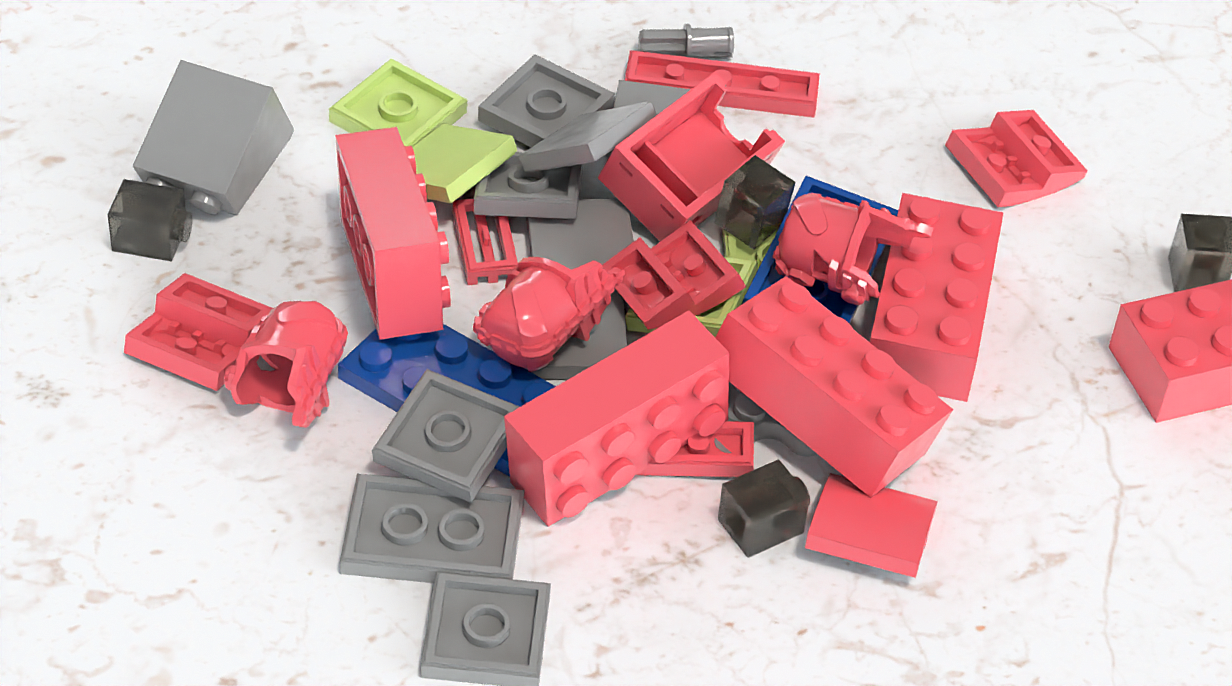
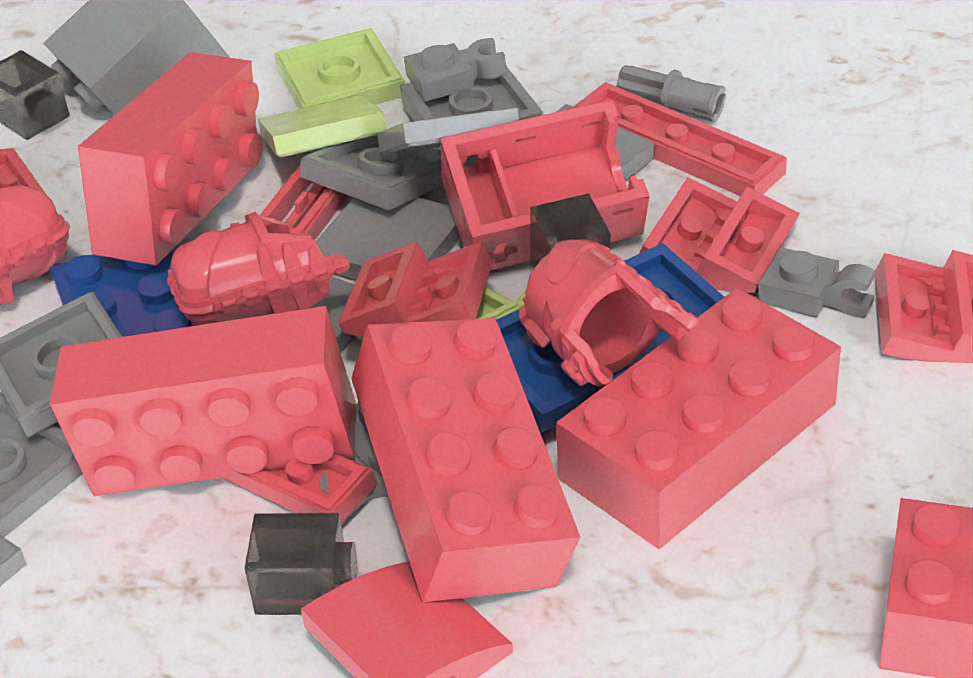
camera: 40 degrees right, 5 degrees down
(514, 82) = (447, 70): none -> light grey plate
(829, 149) = (721, 237): none -> coral slope
(915, 173) = (809, 282): none -> light grey plate

